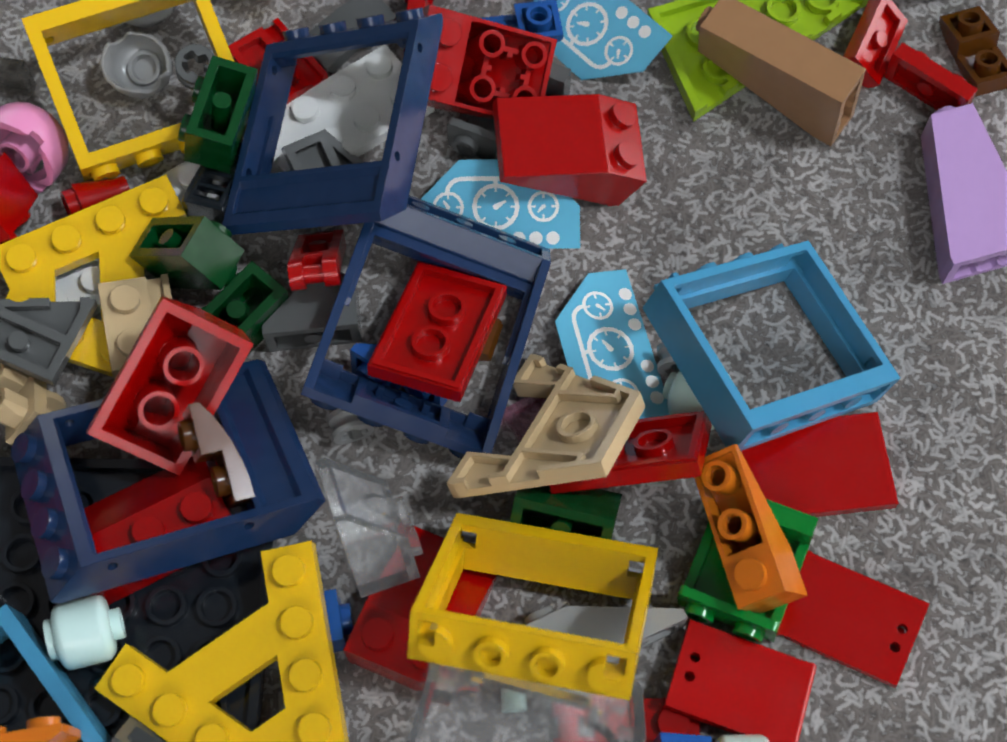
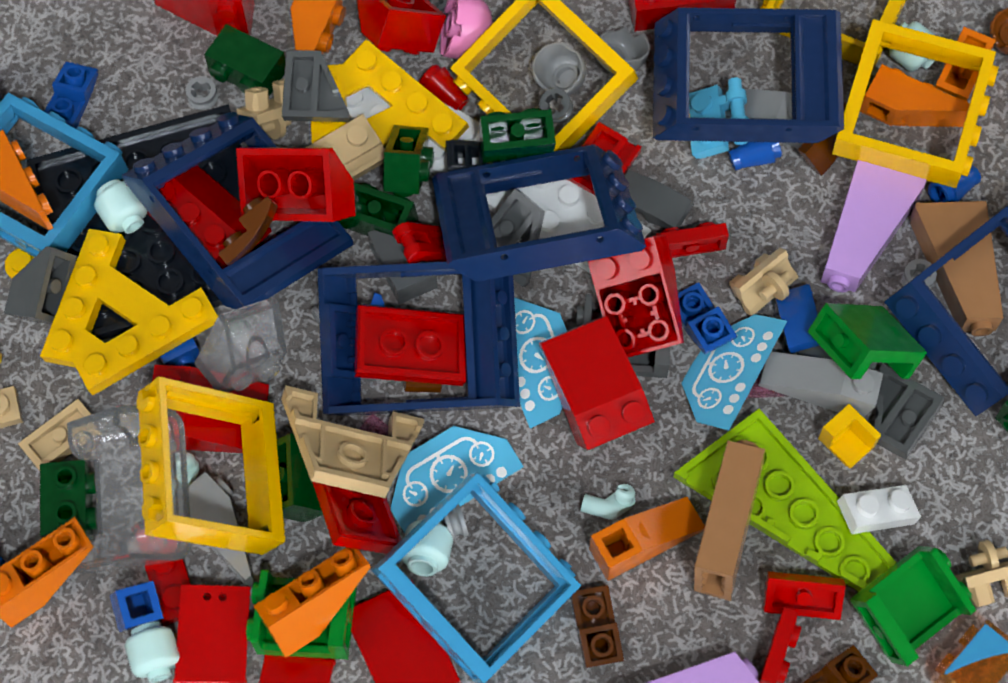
camera: 70 degrees right, 0 degrees up
(708, 190) = (612, 506): none -> light aqua arm
(765, 169) = (644, 536): none -> orange slope
(855, 253) = (596, 626): none -> reddish brown slope

